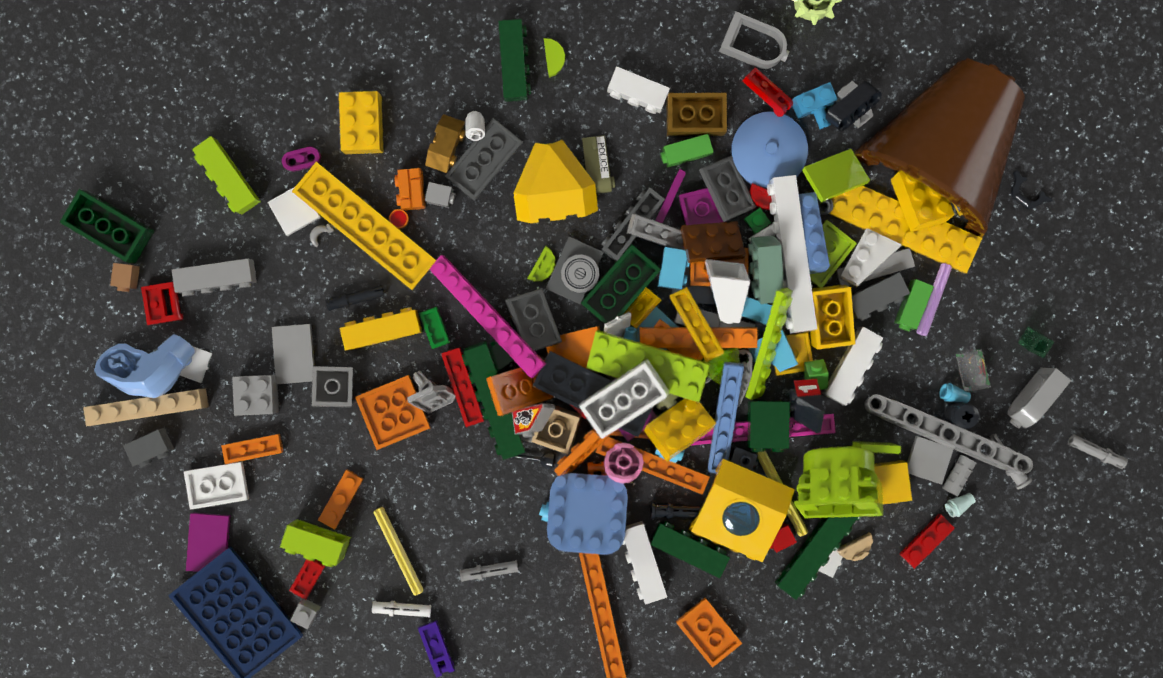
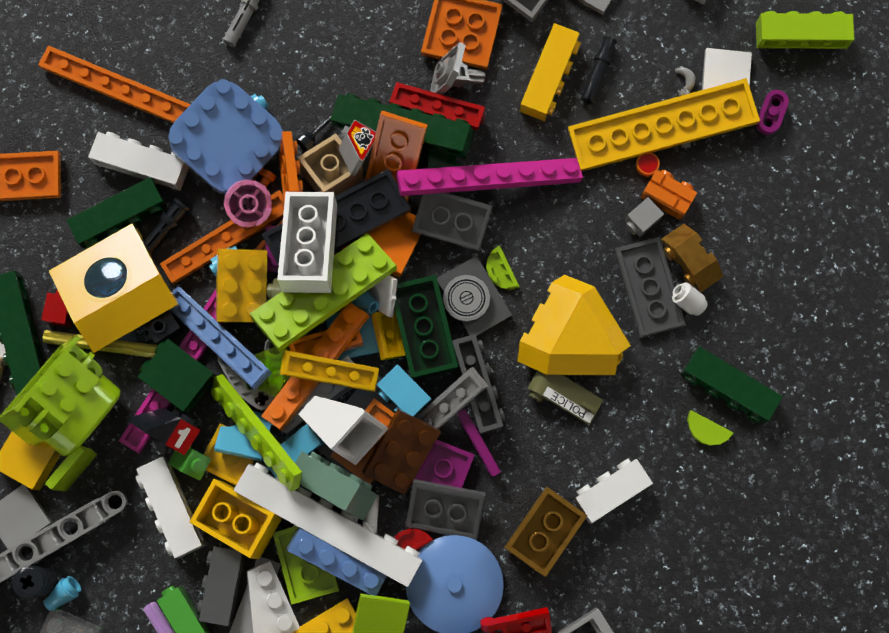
camera: 130 degrees right, 10 degrees down
(361, 122) = (770, 192): yellow brick -> none
(434, 327) = (515, 123): green plate -> none
(686, 150) = (514, 495): bright green brick -> none
(757, 221) = (390, 518): green plate -> none
(824, 211) = (352, 594): dark grey plate -> none

